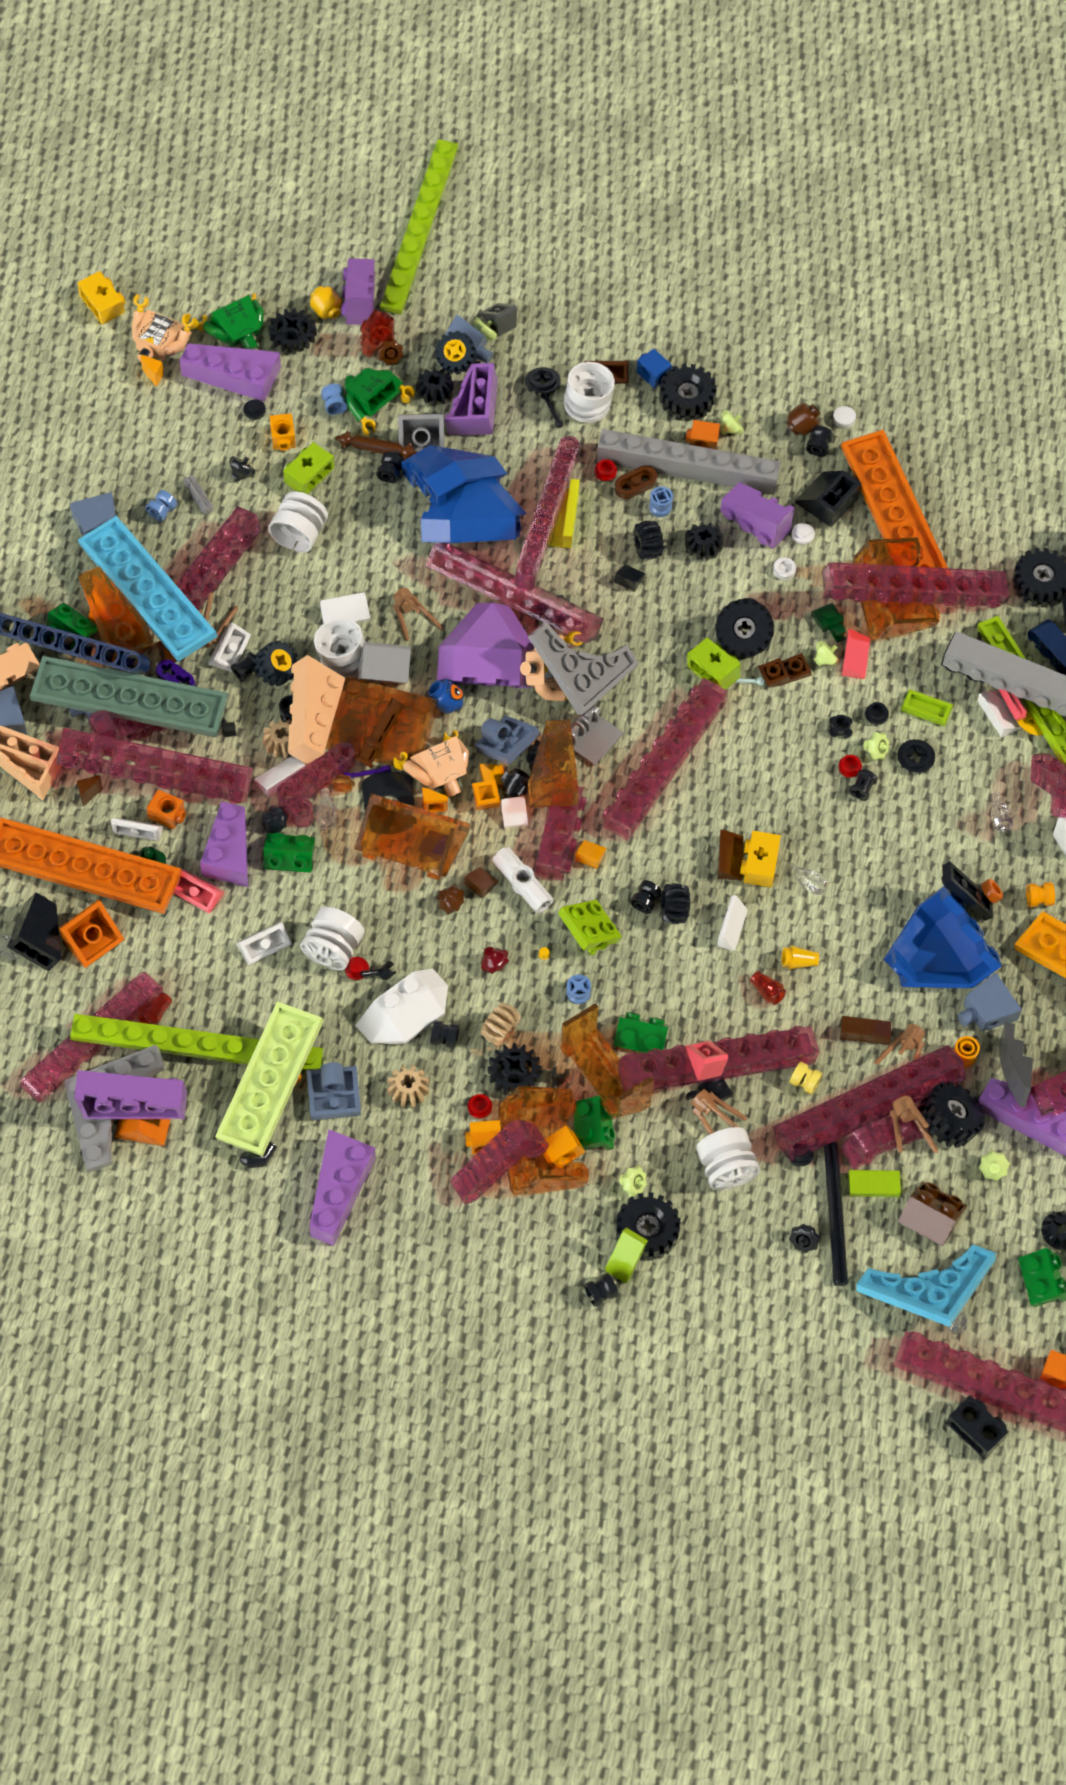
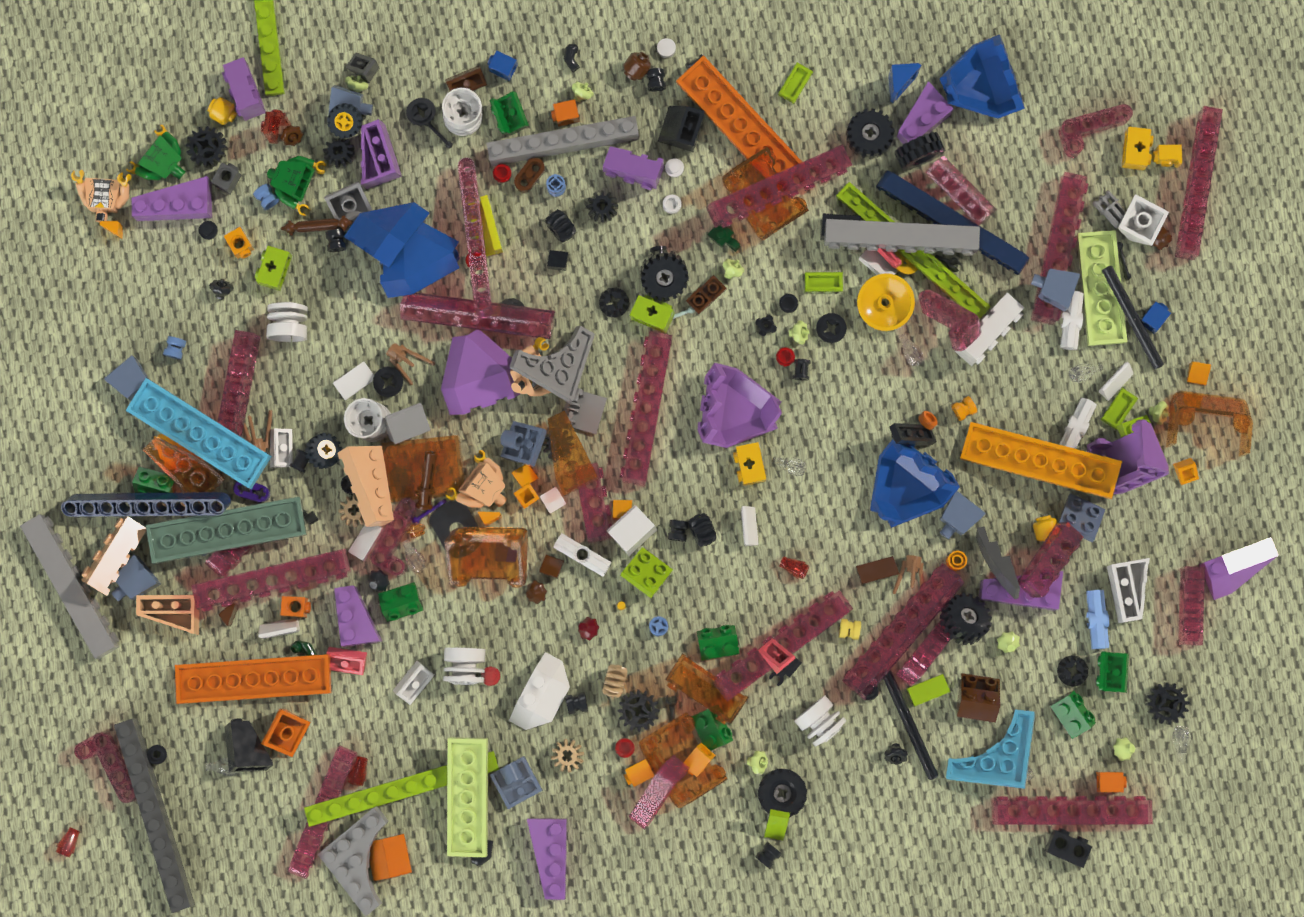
camera: 15 degrees left, 20 degrees up
(101, 297) = (35, 170): yellow brick -> none
(129, 1096) = (376, 859): medium lavender wedge -> none
(198, 494) = (198, 324): light grey axle -> none
(299, 366) = (229, 185): none -> dark grey brick
(384, 617) = (387, 372): none -> black gear
(384, 972) = (509, 671): black hand -> none
(448, 695) = (462, 425): blue head -> none
(515, 782) = (544, 476): black gear -> none
(593, 874) = (632, 530): none -> white slope
(639, 415) = (509, 114): none -> green bracket
(666, 645) = (610, 310): none -> black gear
(685, 381) = (530, 68): black bush -> none
(706, 1103) = (785, 681): medium nougat plant -> none
(730, 855) = (725, 469): reddish brown slope -> none
(735, 382) = (569, 54): none -> black arm
(768, 792) = (735, 408): none -> medium lavender panel
(796, 957) = (808, 533): yellow cone -> none
(856, 655) = (754, 258): coral slope -> none
(906, 1111) = (934, 634): medium nougat plant -> none
(976, 501) = (795, 83): none -> lime tile
(993, 734) = (900, 303): none -> yellow dish

